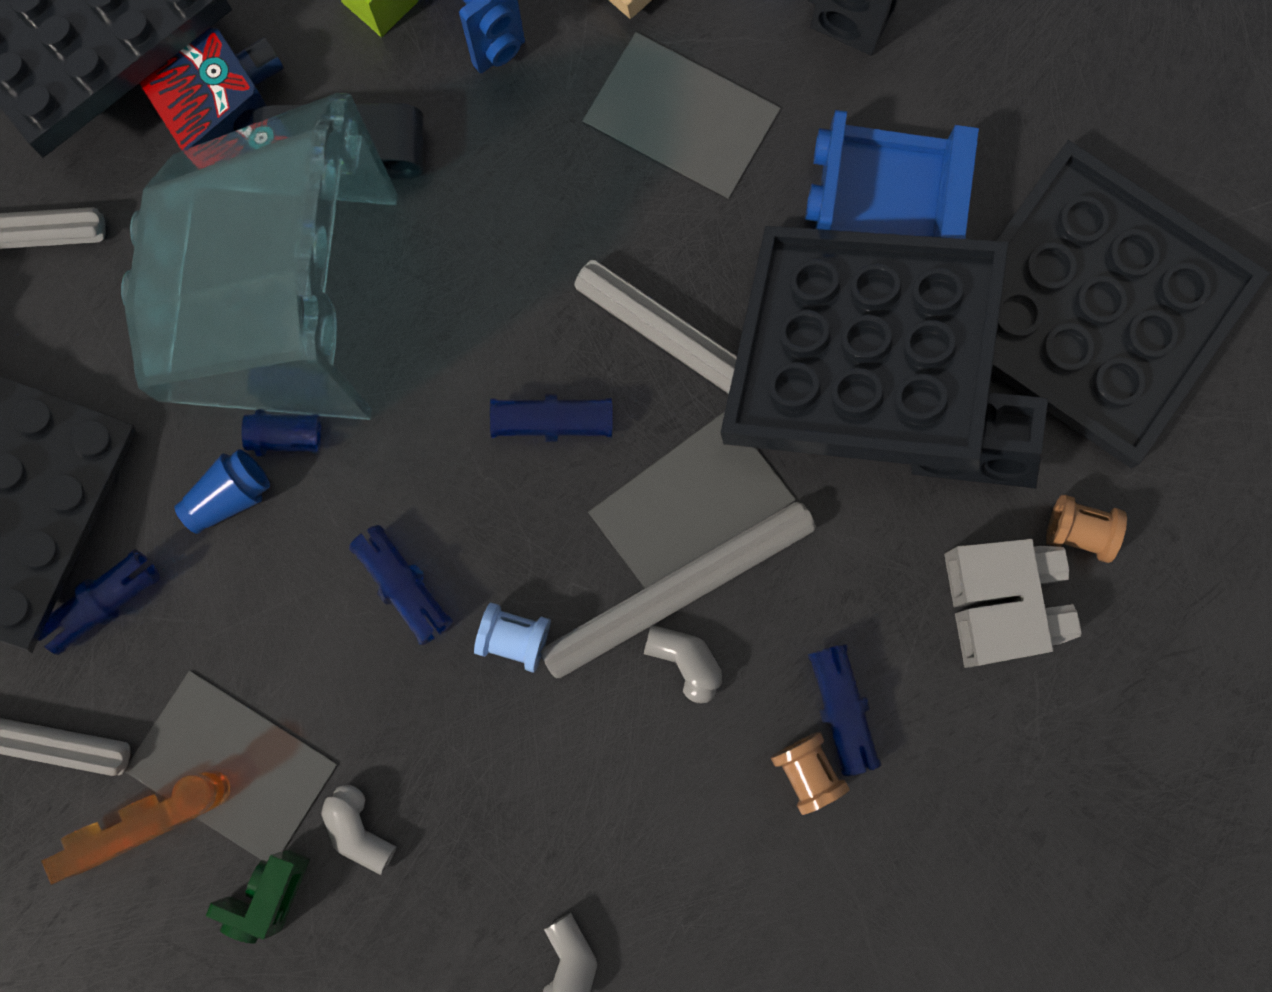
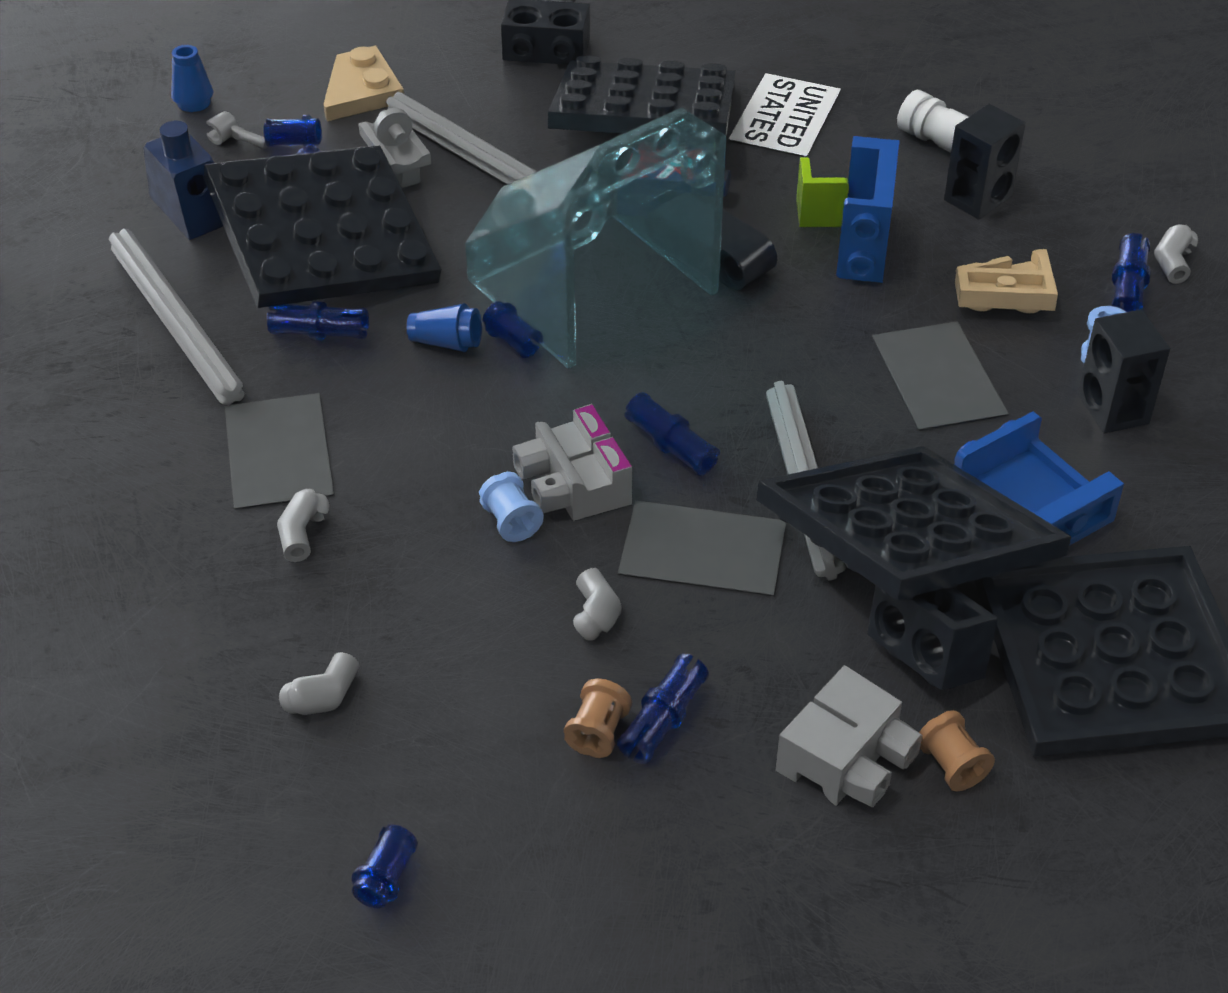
camera: 45 degrees right, 35 degrees down
(140, 823) = (199, 419): clear orange plate -> none
(272, 894) = (214, 505): dark green bracket -> none
(400, 584) = (482, 437): clear blue pin -> none
(492, 528) = (581, 466): none -> light grey hips
(677, 589) = (642, 569): light grey axle -> none

